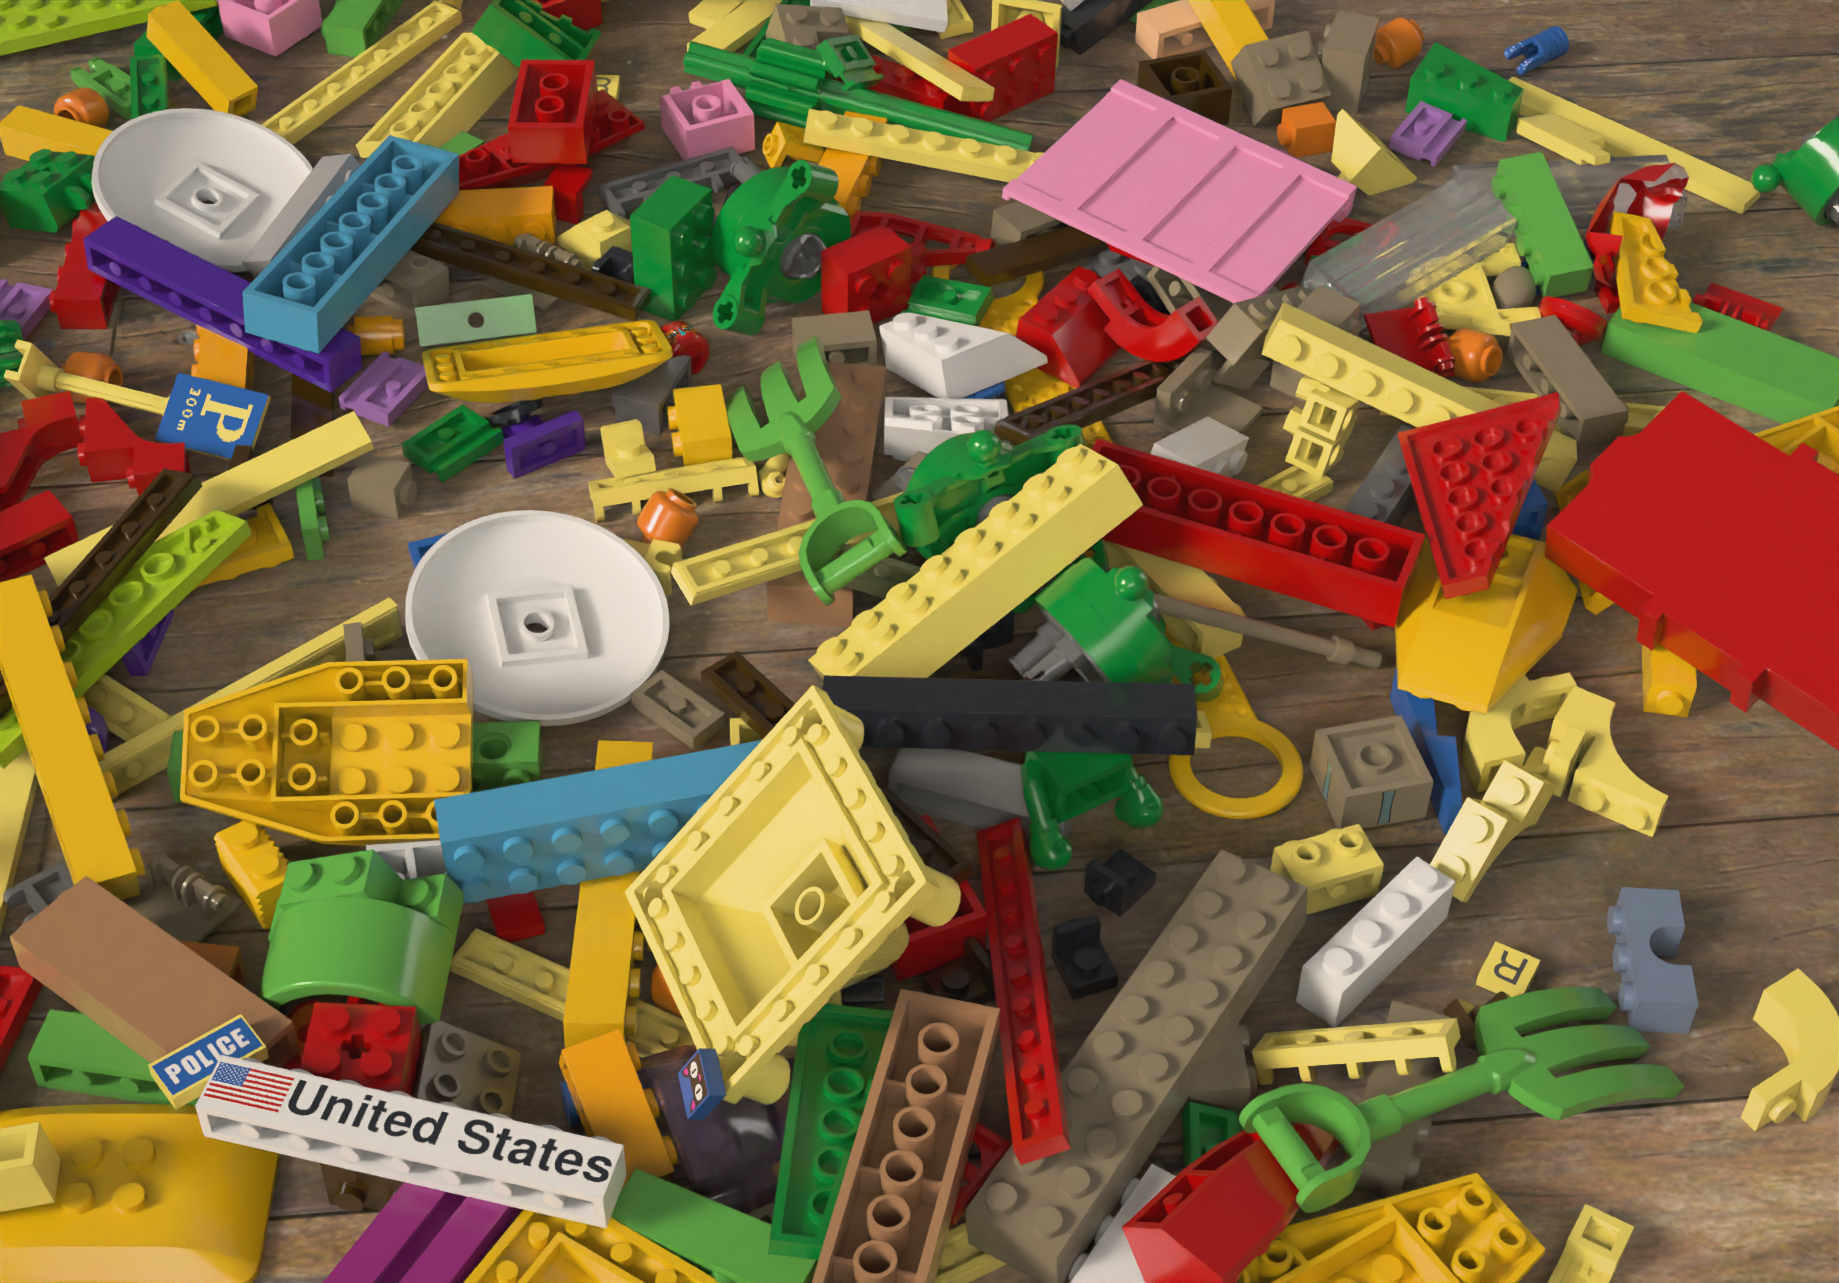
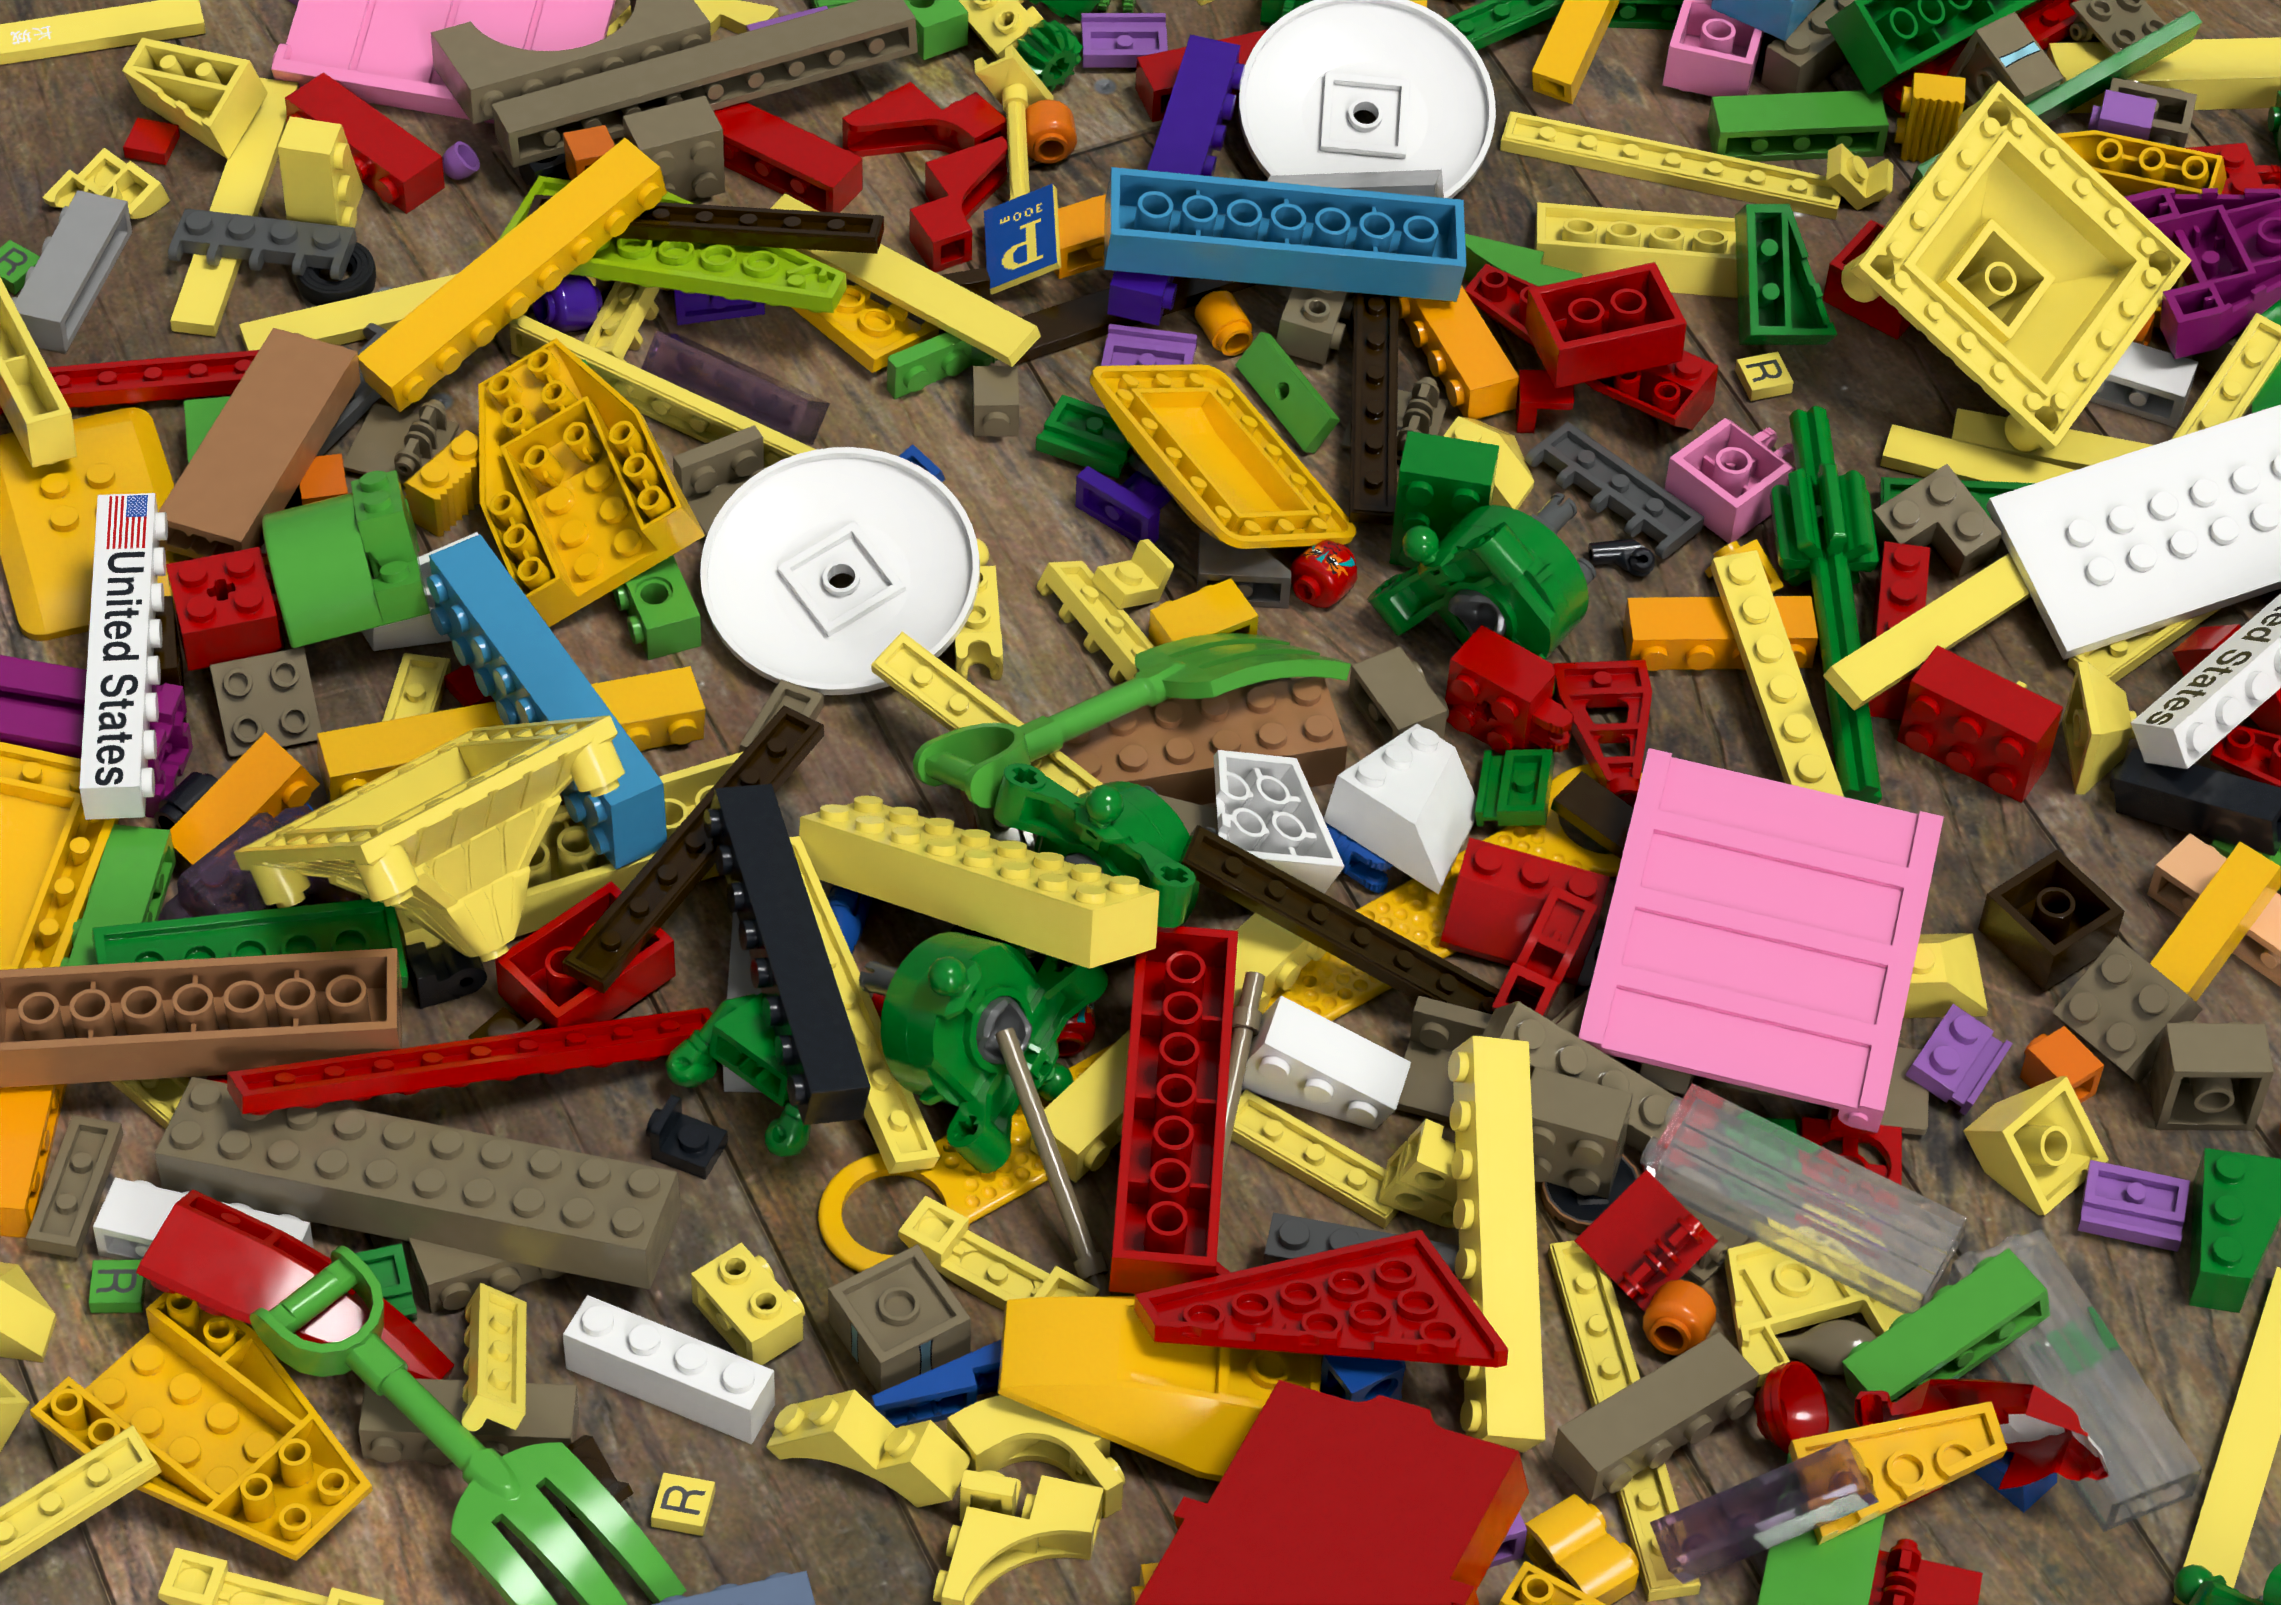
camera: 70 degrees right, 5 degrees up
(187, 1069) = (185, 503): tile -> none
(267, 640) = (736, 386): none -> brick
(668, 517) = (1036, 636): orange head -> none
(702, 1084) = (244, 833): blue tile -> none
(850, 60) = (1853, 559): green plate -> none
(1082, 957) = (577, 1128): black bracket -> none
(1341, 702) = (979, 1264): none -> light yellow slope
(1564, 138) = (2181, 1351): light yellow piece -> none
(1692, 326) = (1764, 1511): none -> brick

